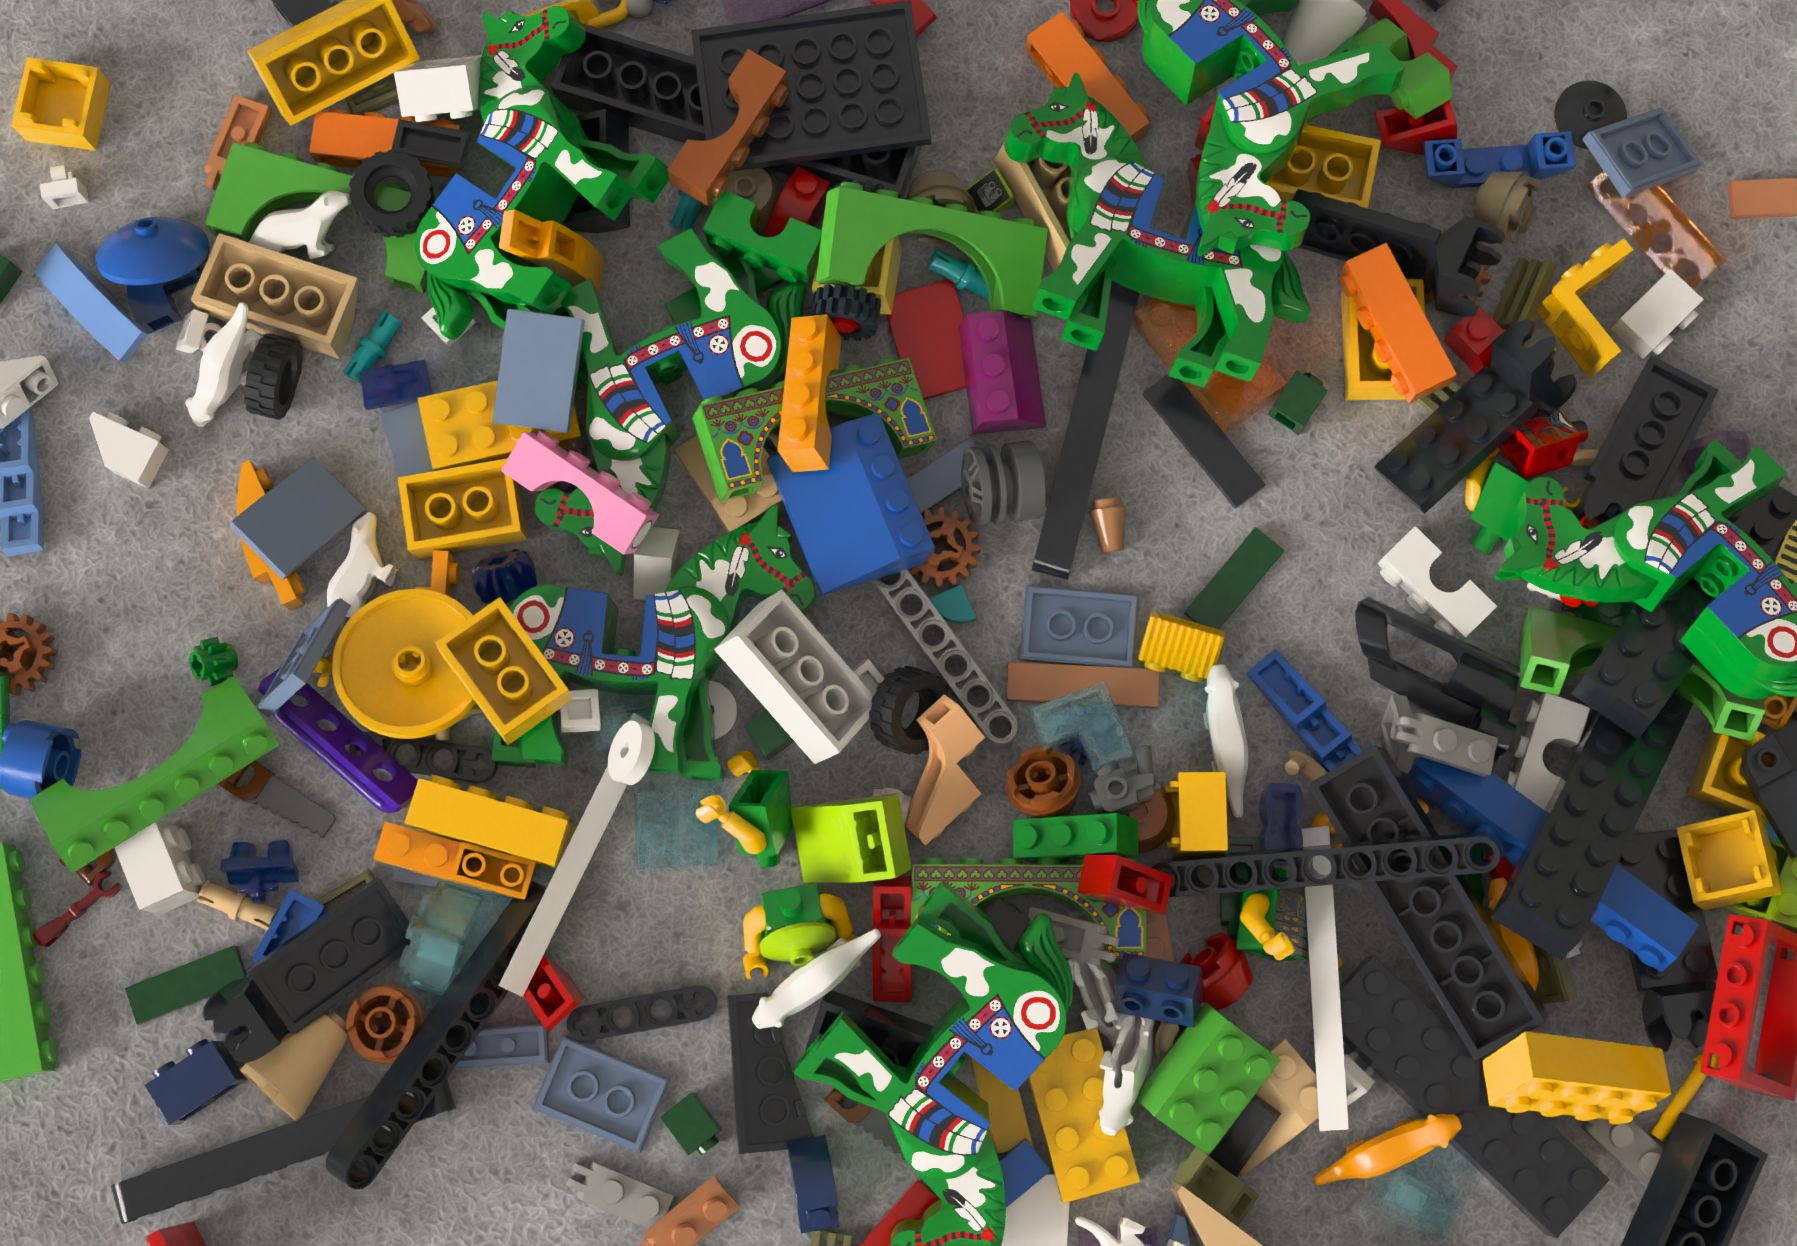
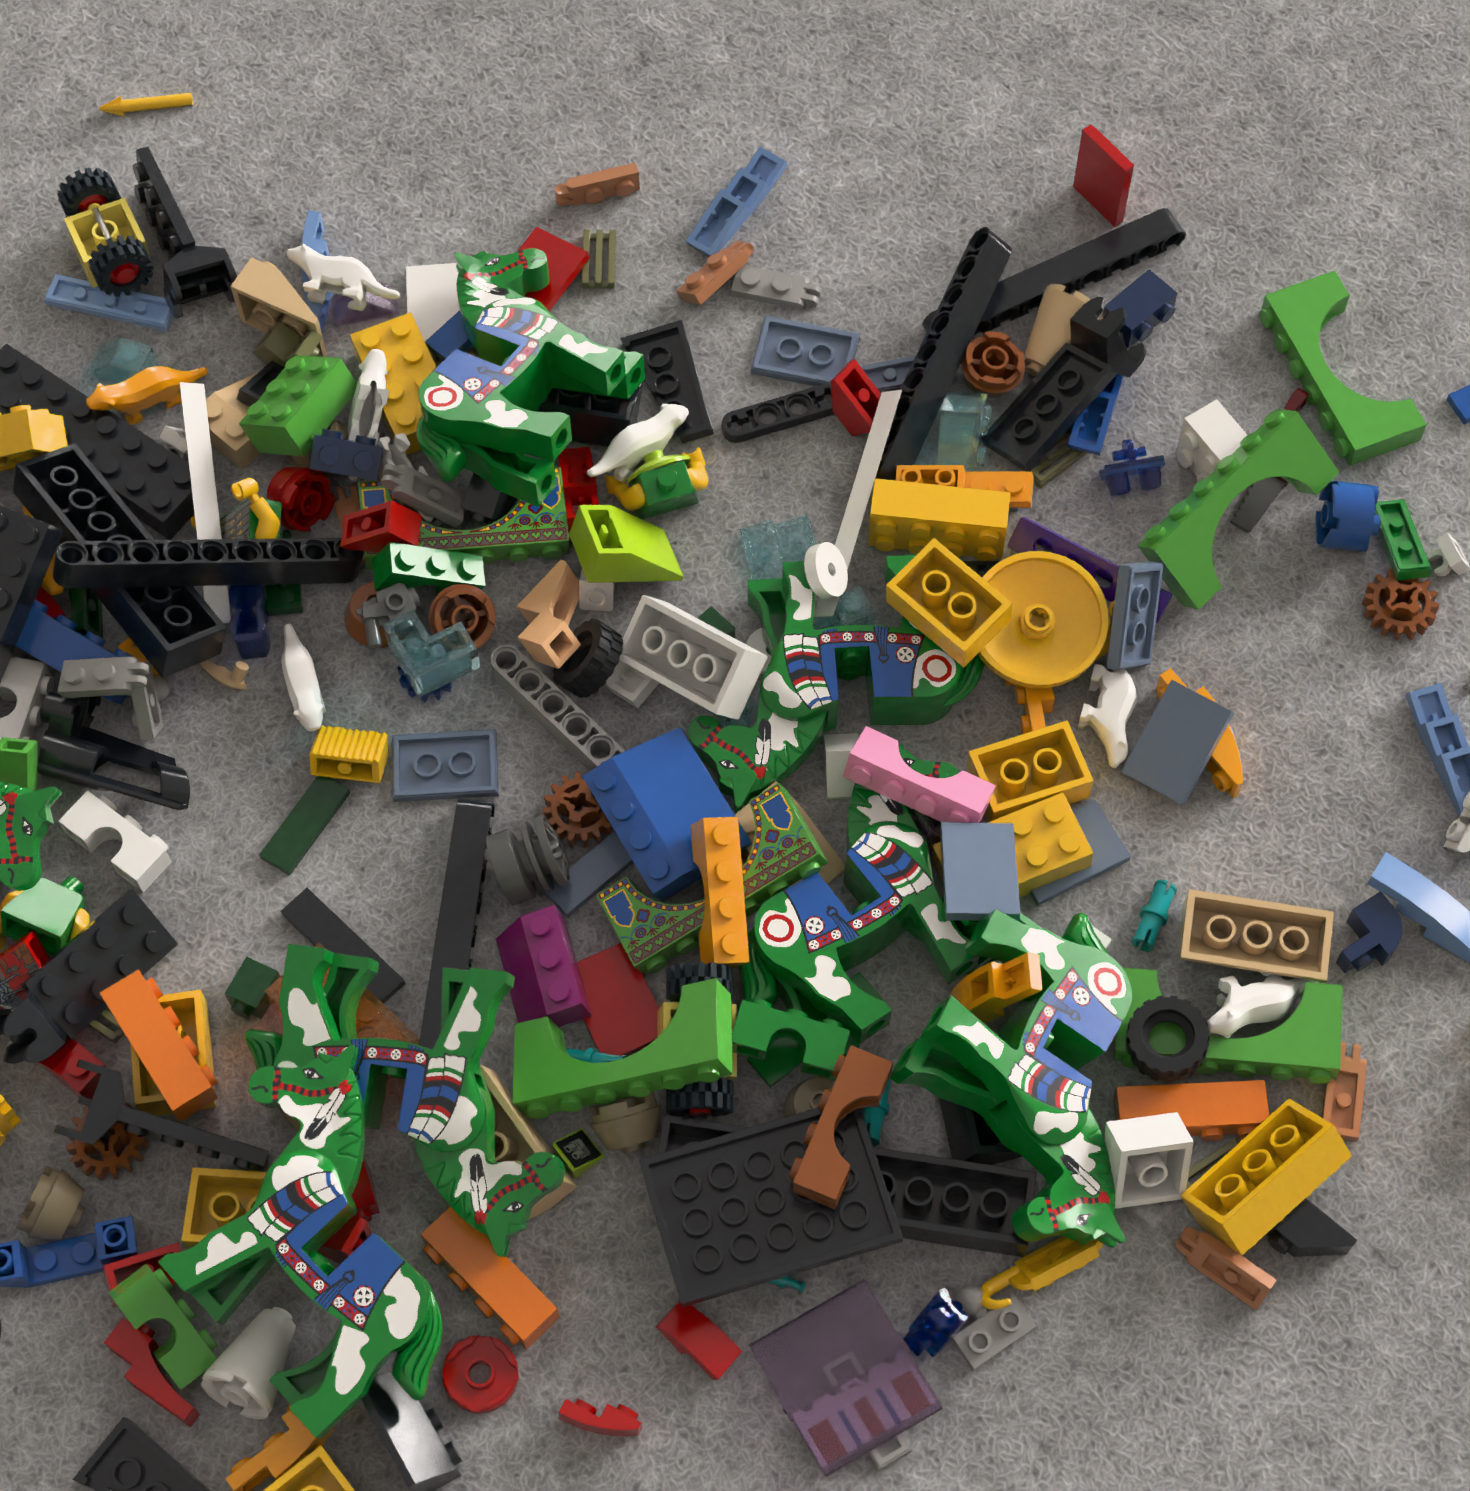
camera: 170 degrees right, 15 degrees down
(126, 451) = (1357, 787): white slope -> none
(152, 251) = (1372, 949): blue dish -> none
(184, 985) = (1169, 382): dark green tile -> none
(193, 332) = (1328, 898): white tile -> none
(213, 661) = (1220, 621): green gear -> none
(222, 367) = (1287, 860): white animal -> none
(237, 905) = (1153, 443): tan pin -> none
(273, 376) = (1236, 858): black tyre -> none
(280, 798) = (1116, 526): dark grey piece -> none
(395, 384) = (1120, 877): clear blue hips -> none
(431, 143) = (1142, 1098): black tile -> none
(504, 576) = (976, 720): clear blue gear -> none
(581, 712) = (877, 609): white tile -> none
(692, 1125) = (725, 337): dark green brick -> none
(758, 812) = (707, 561): green torso -> none
(800, 199) = (767, 1092): red slope -> none
(813, 1183) = (619, 309): dark blue brick -> none
(954, 605) = (561, 764): teal tile -> none
(1051, 681) = (439, 715): nougat tile -> none
(1109, 523) = (426, 857): medium nougat cone -> none
(1199, 813) = (322, 610): yellow container -> none
(1304, 711) = (228, 715): blue slope -> none
(1518, 292) = (45, 1132): olive tile -> none

